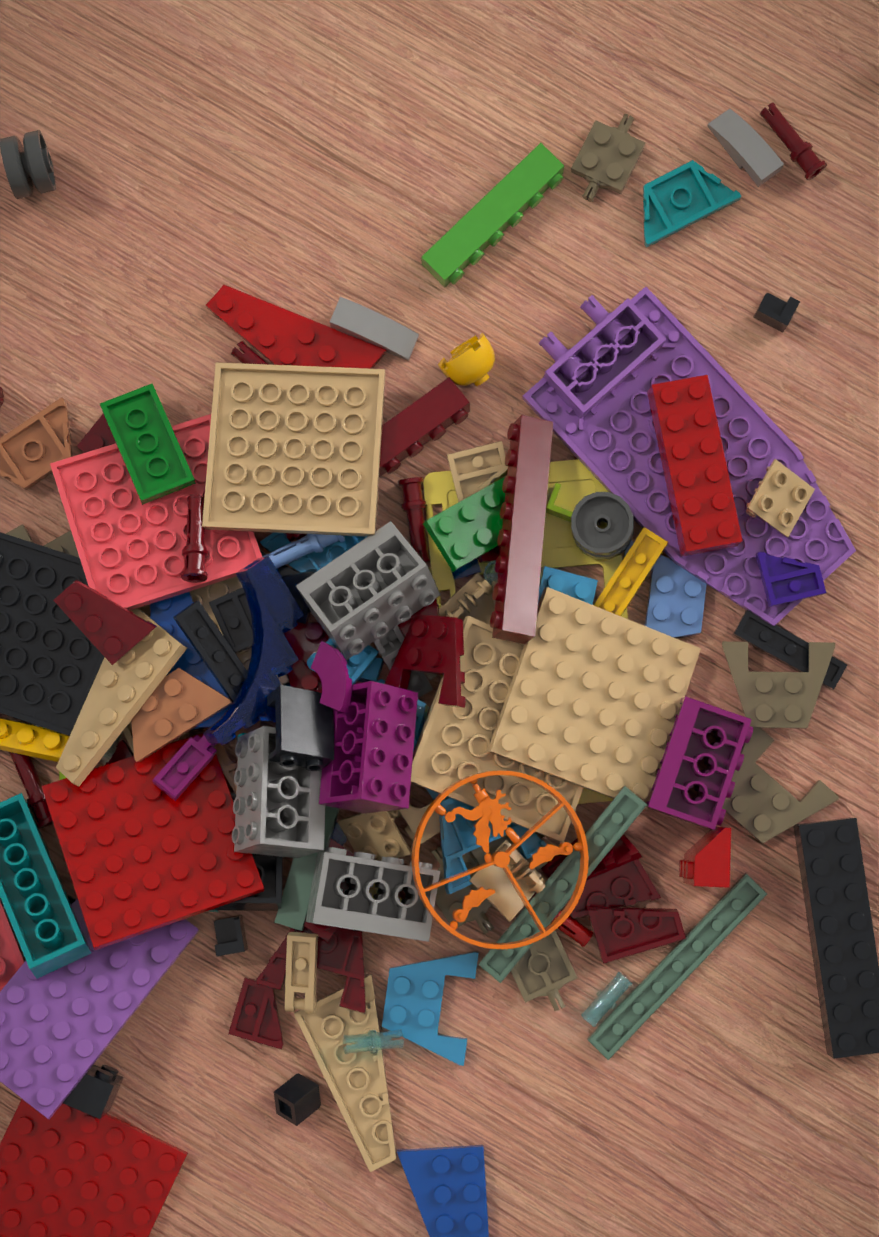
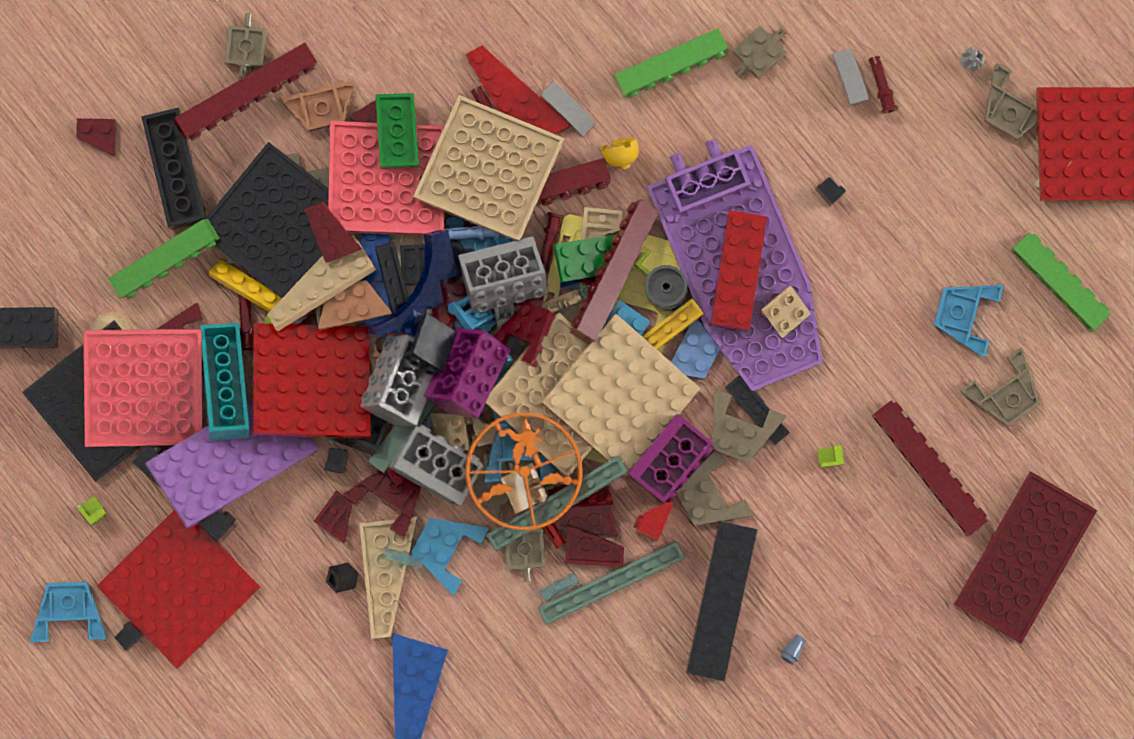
camera: 10 degrees right, 0 degrees up
(185, 766) = (348, 343): magenta hinge -> none
(195, 551) = (403, 210): dark red pin -> none
(301, 971) = (373, 498): tan plate -> none
(334, 677) = (462, 318): magenta tile -> none
(682, 200) = (796, 97): teal wing -> none
(789, 580) = (771, 364): dark purple wing -> none

